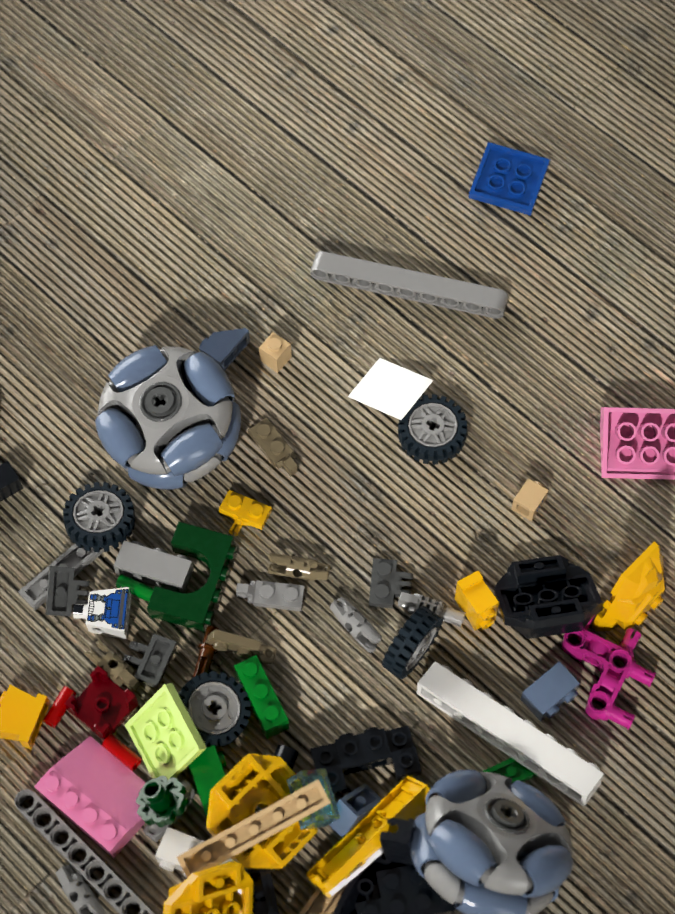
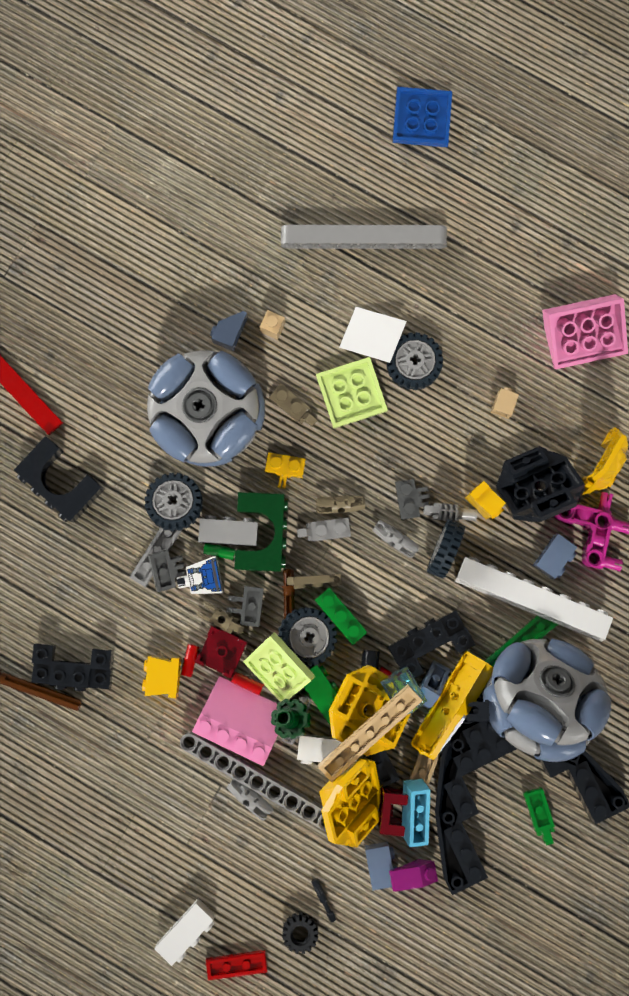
camera: 15 degrees left, 20 degrees up
(347, 447) = (351, 392): none -> yellowish green plate

